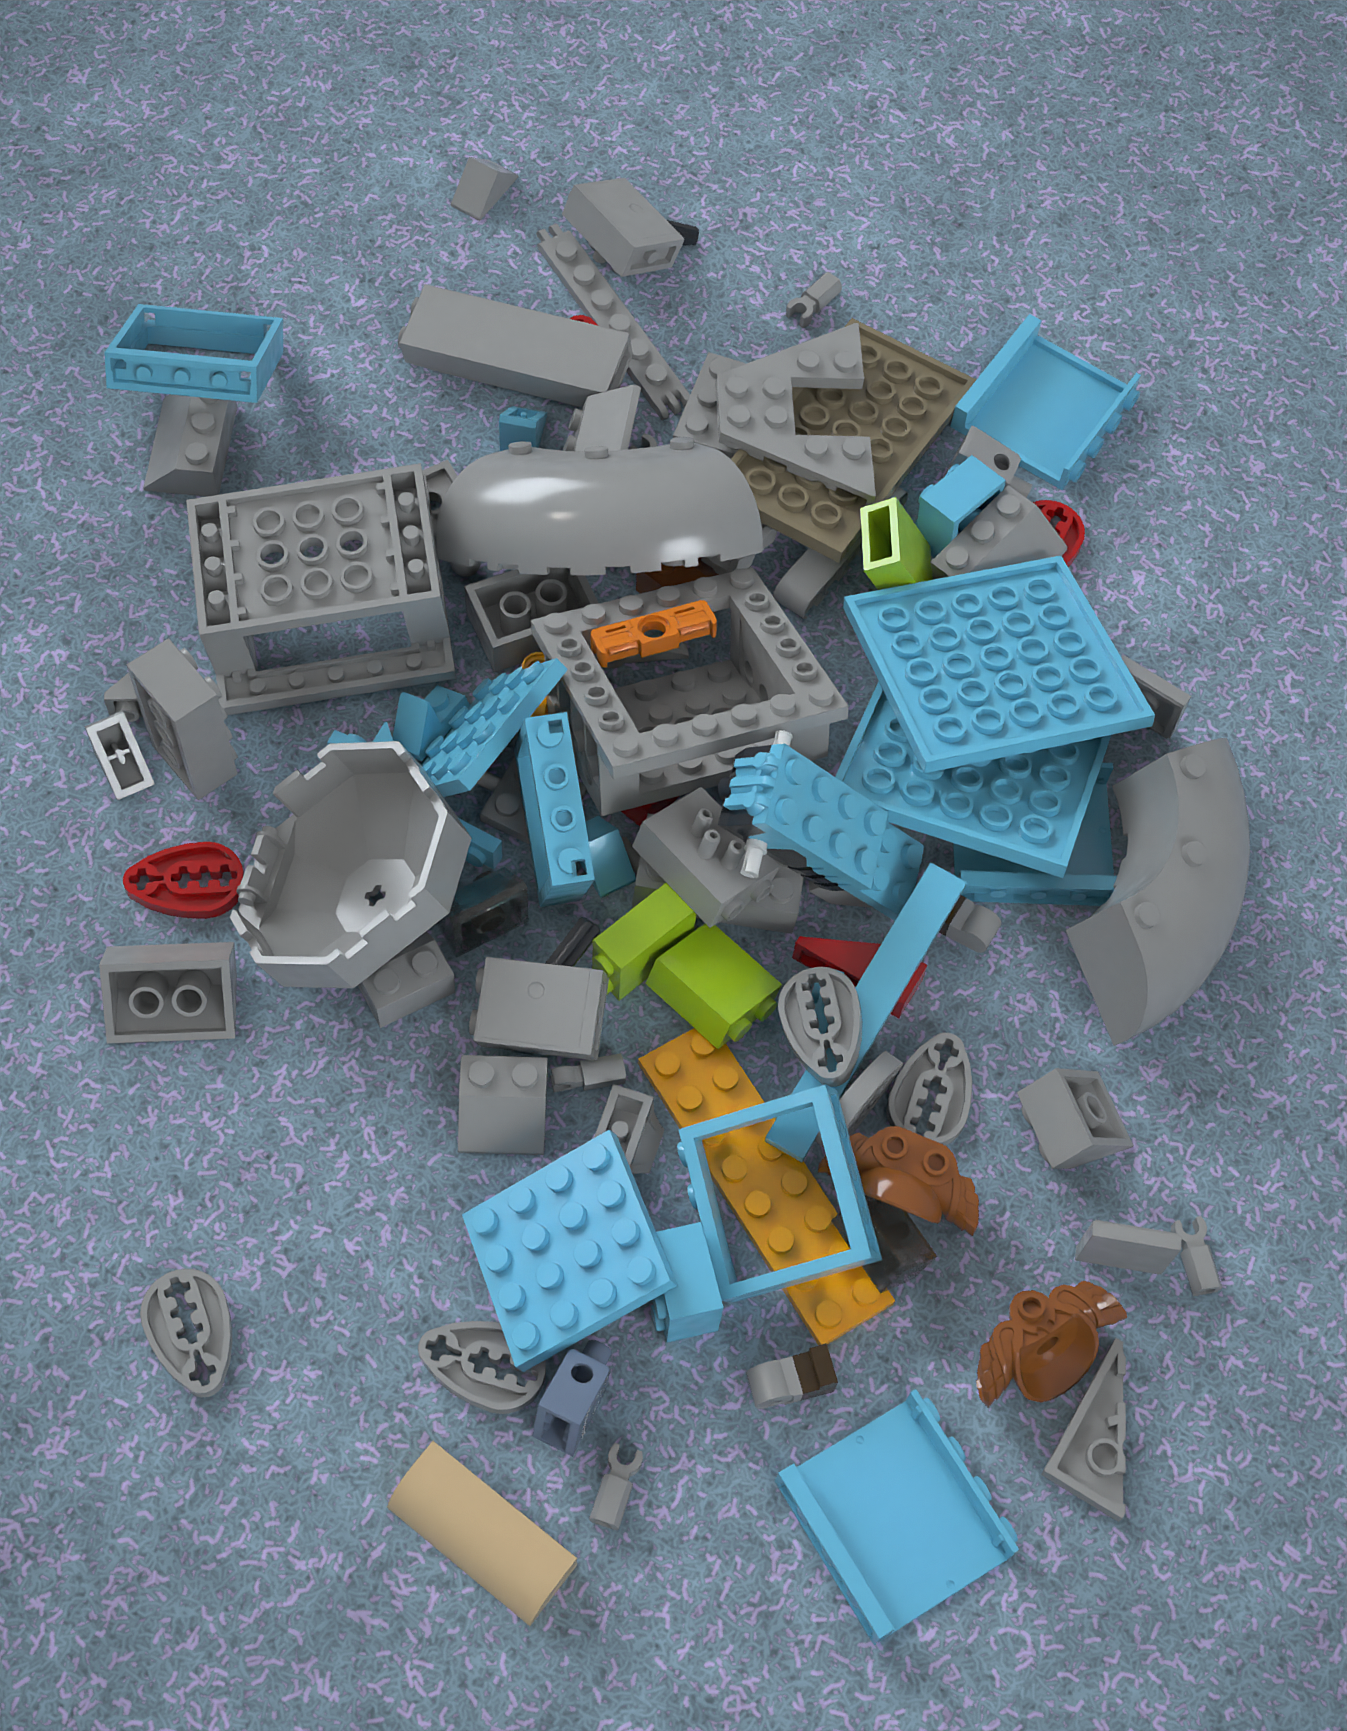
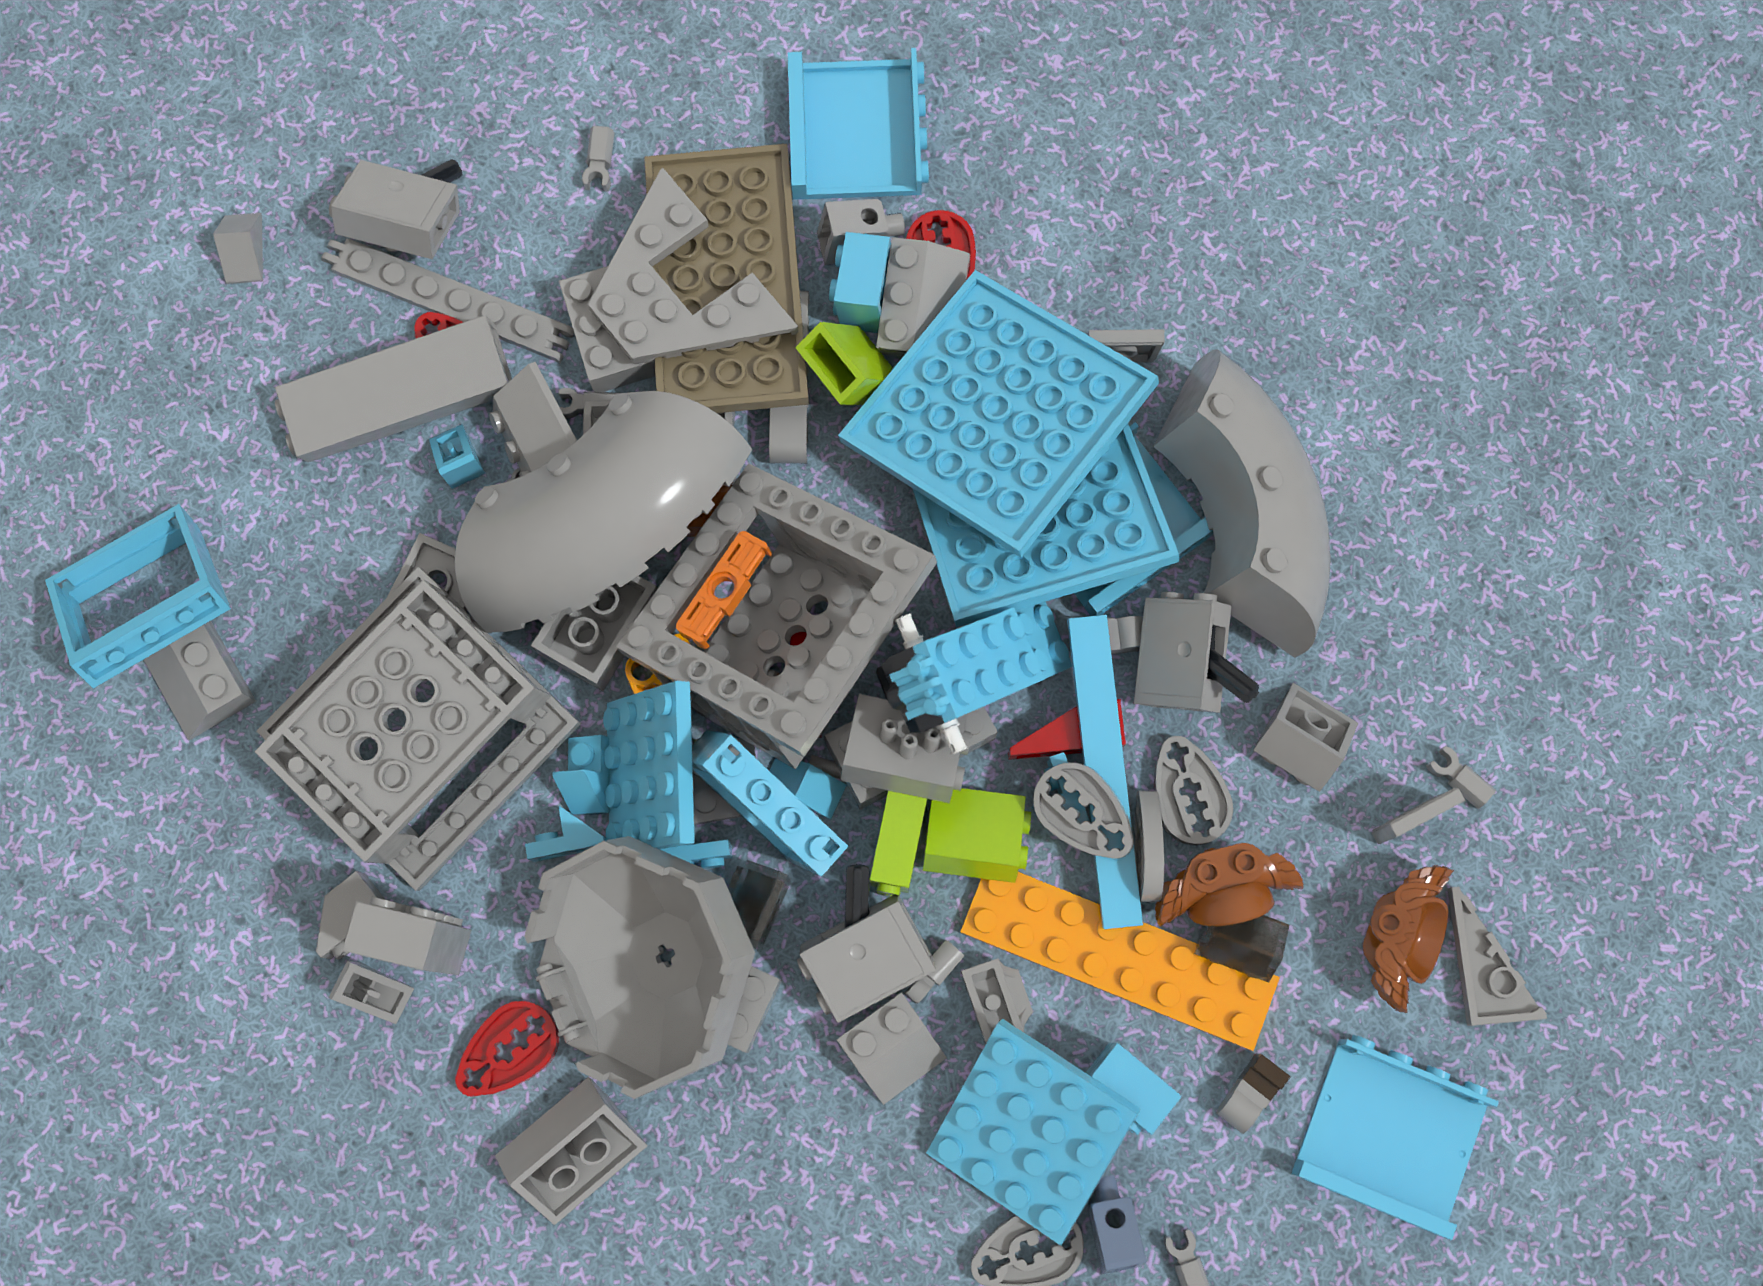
camera: 30 degrees left, 15 degrees up
(844, 1176) = (1189, 924): medium azure window -> none
(1014, 968) = (1185, 655): none -> light grey piece

